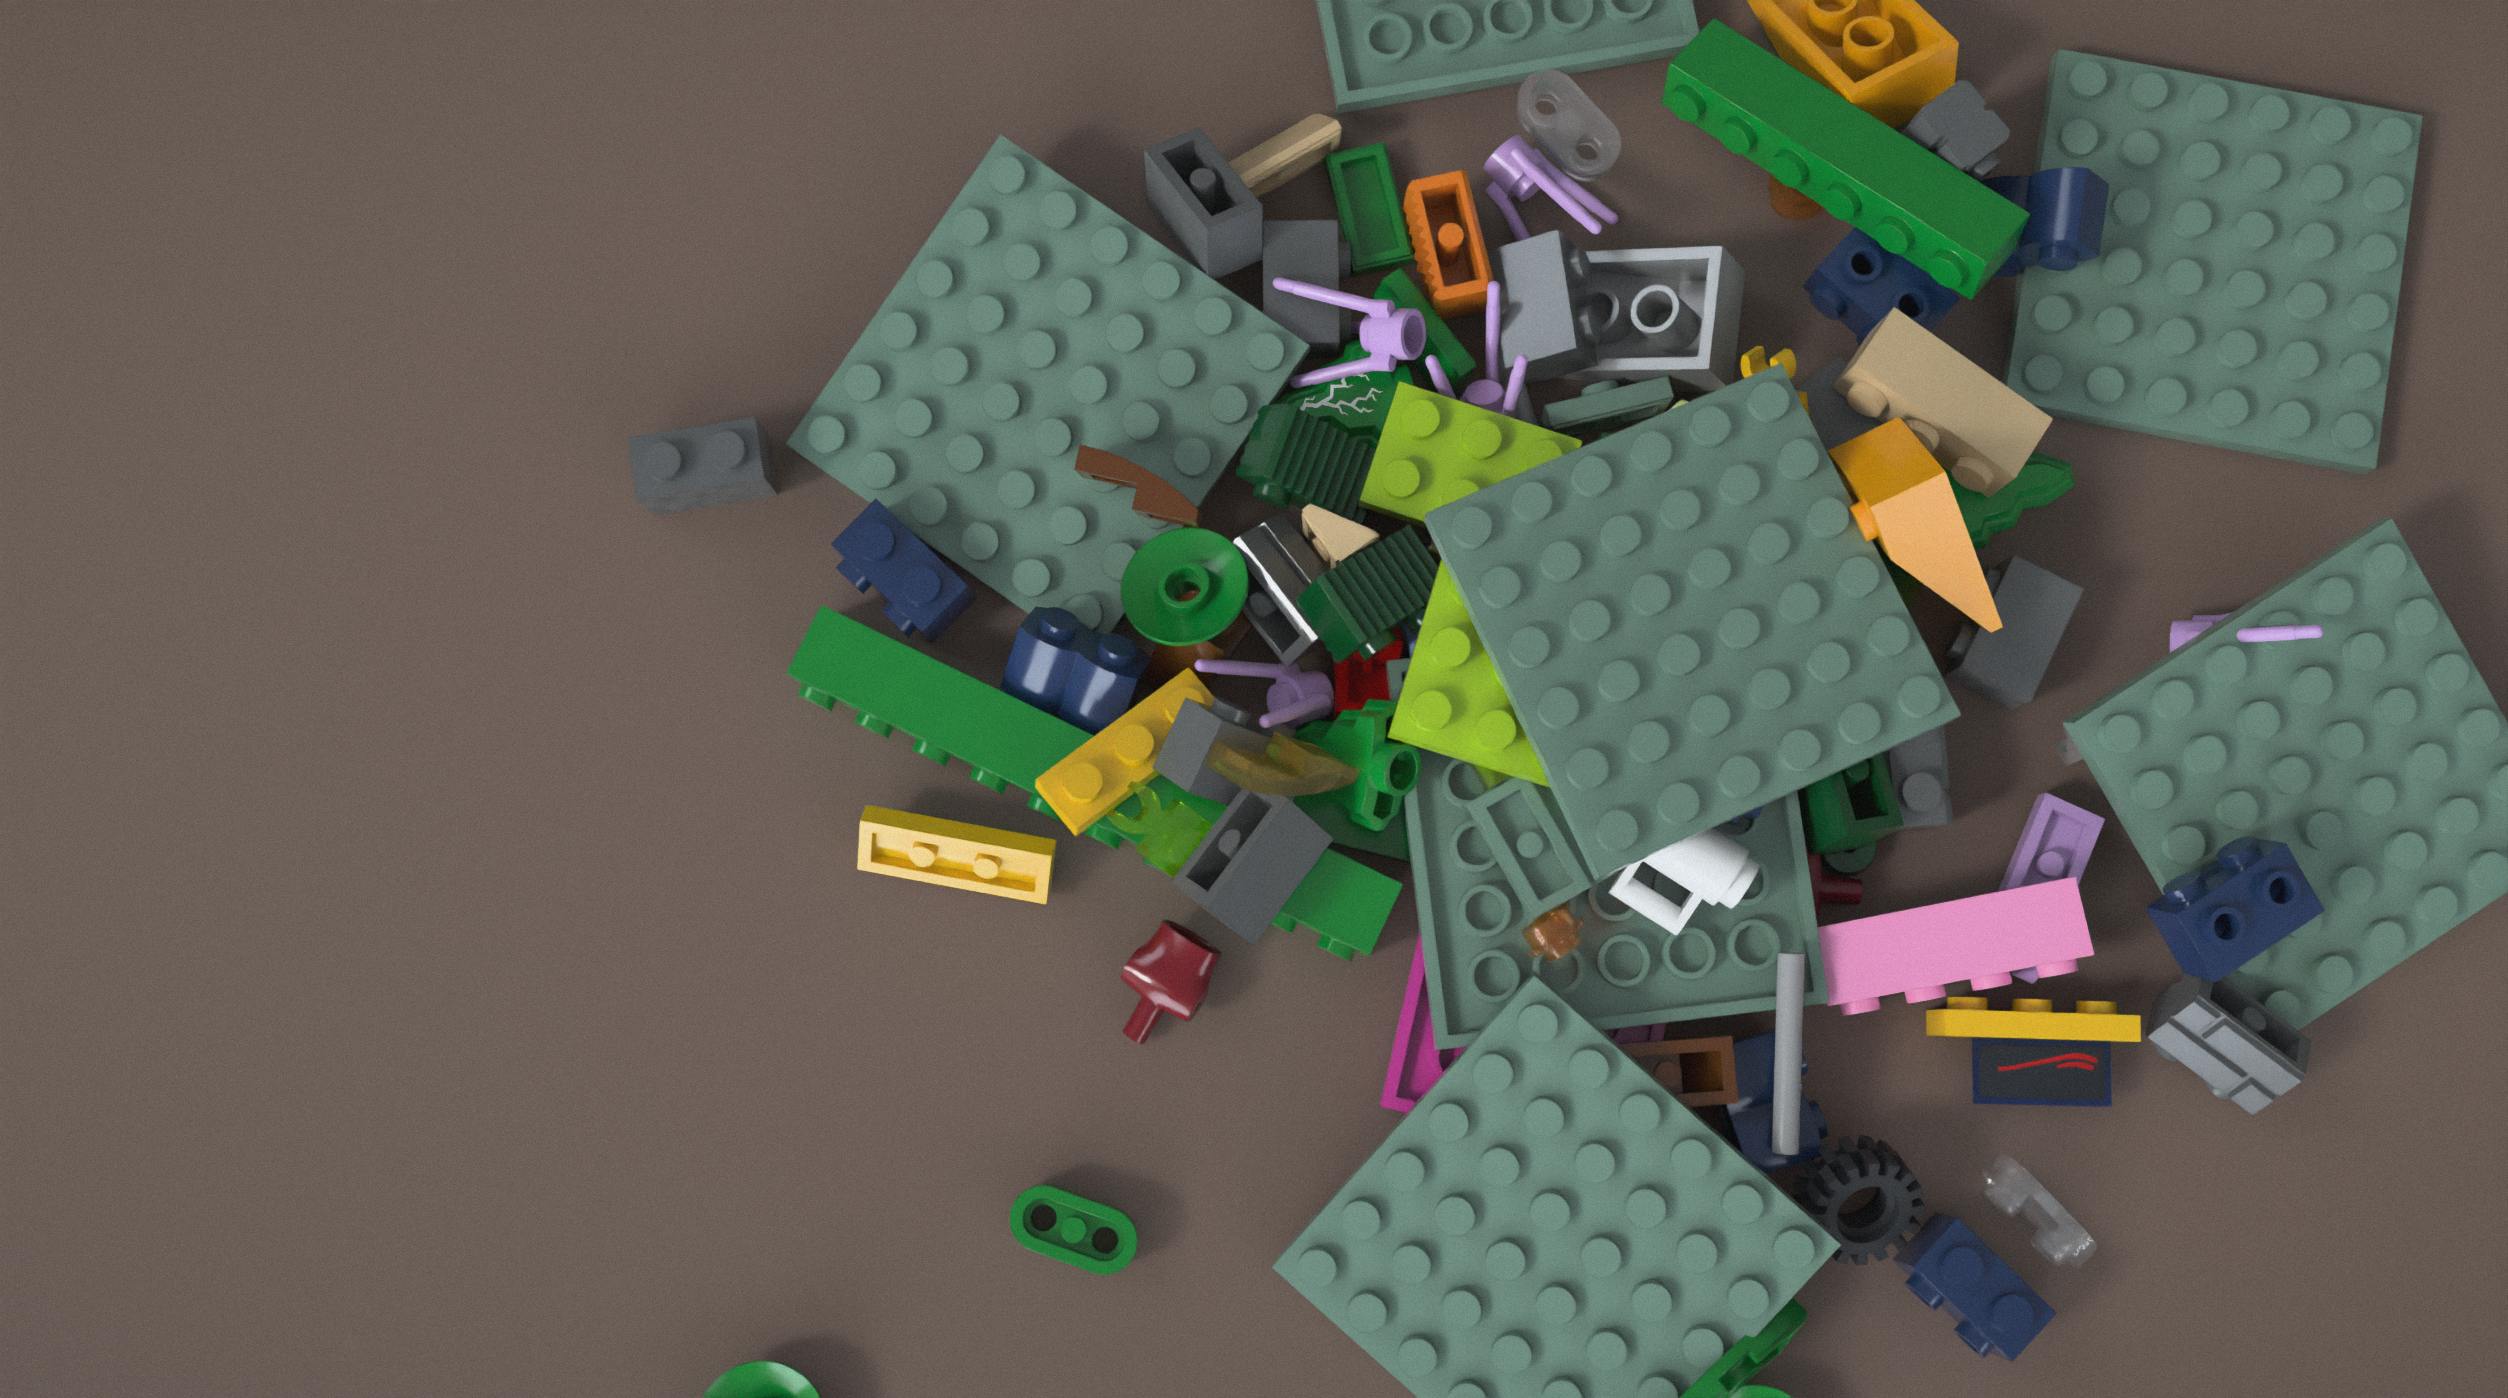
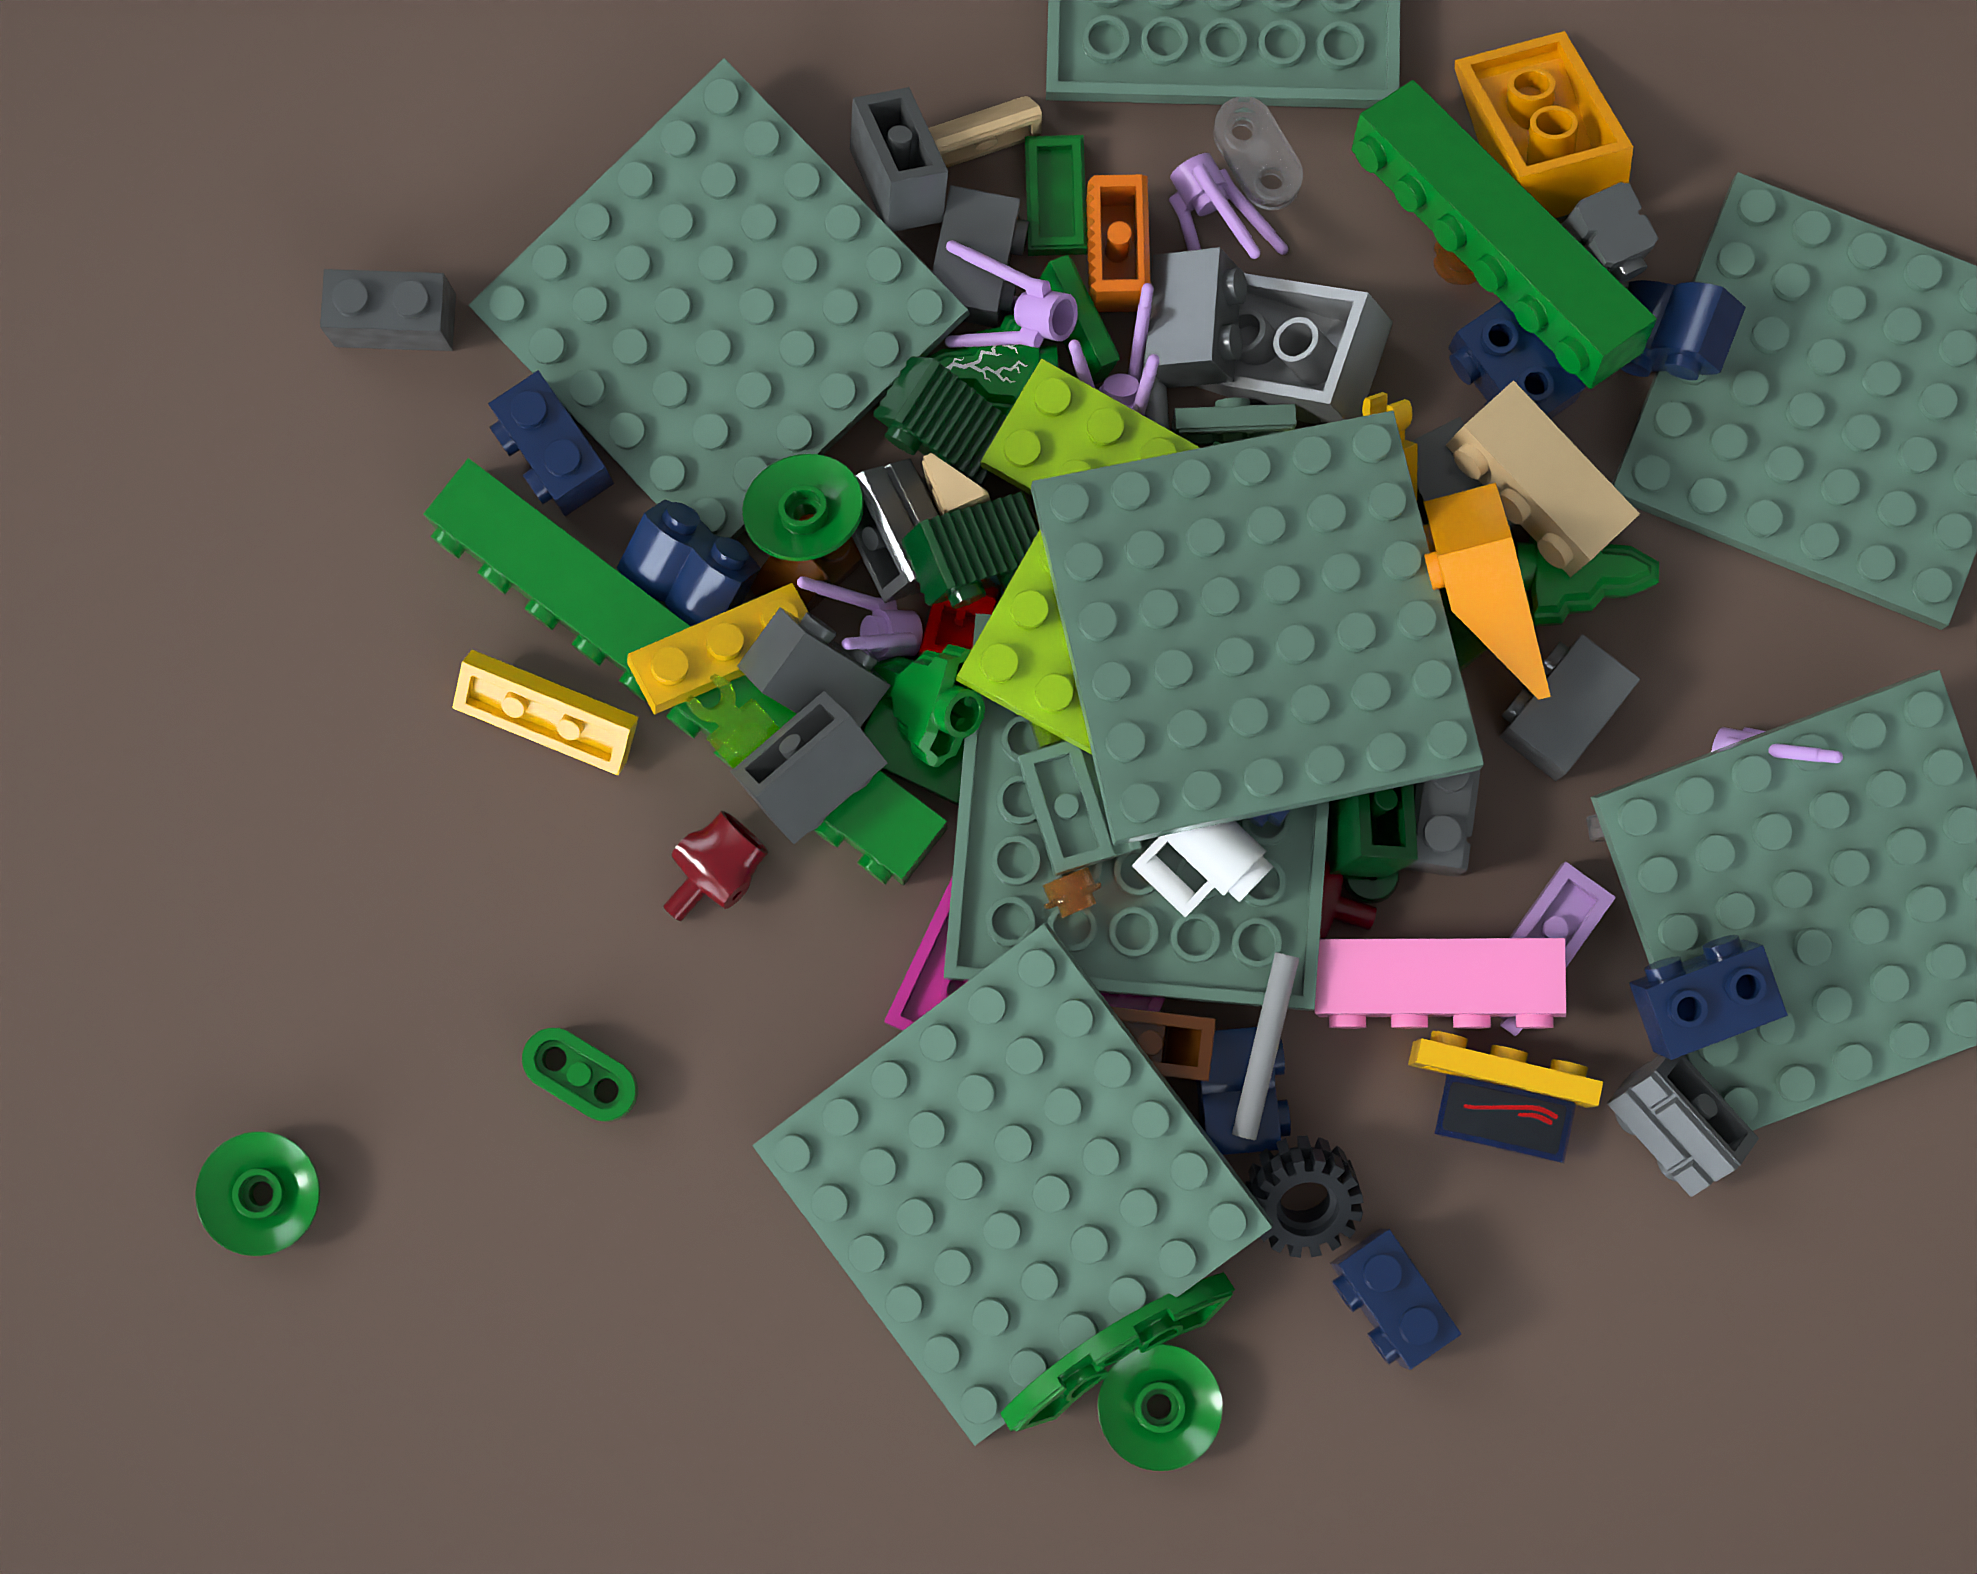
camera: 15 degrees right, 0 degrees up
(1153, 495) = (789, 418): reddish brown slope -> none
(1285, 769) = (857, 690): clear yellow slope -> none
(2056, 1231) = (1456, 1223): clear plate -> none

